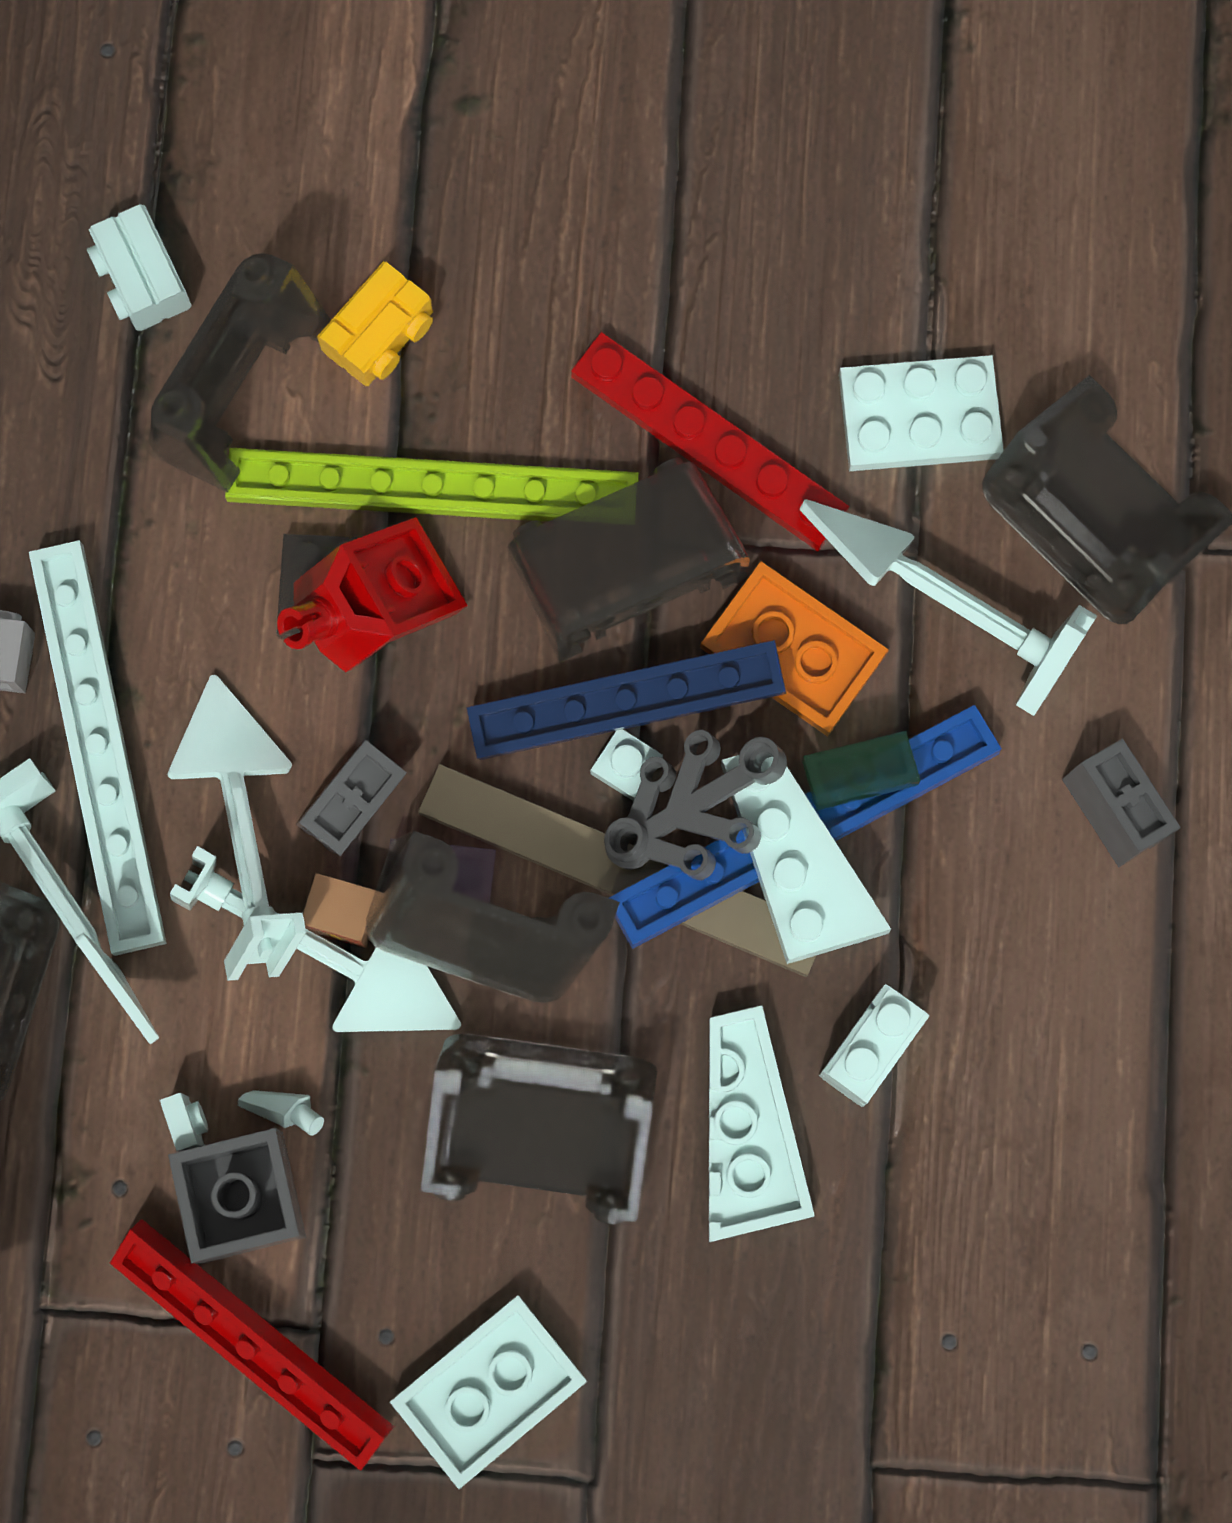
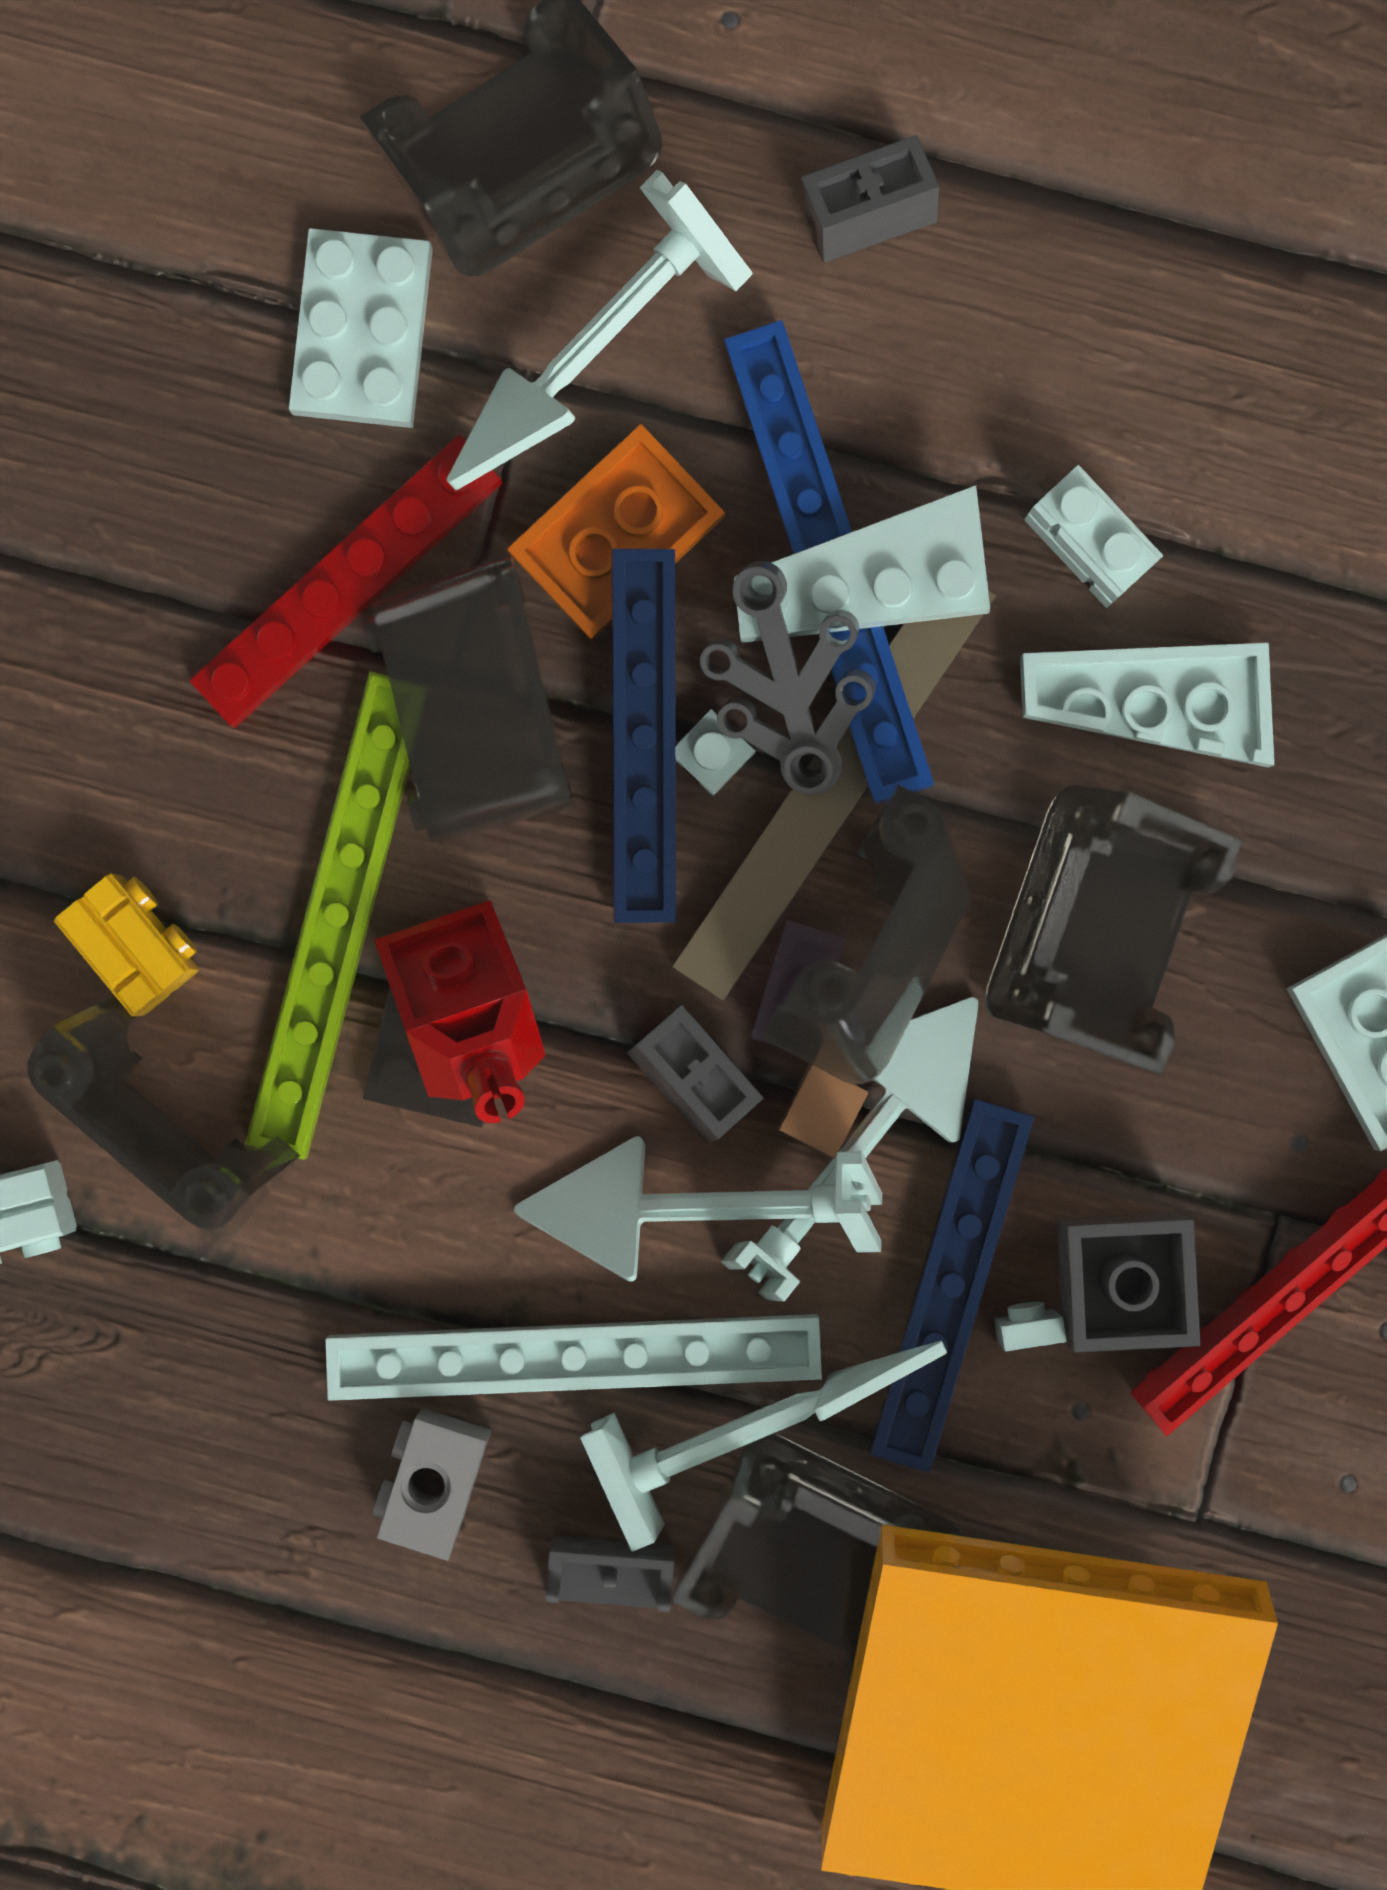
camera: 80 degrees left, 10 degrees up
(212, 1050) = (952, 1281): none -> dark blue plate
(283, 1109) = (1032, 1213): light aqua bar -> none
(861, 770) = (783, 482): clear green plate -> none

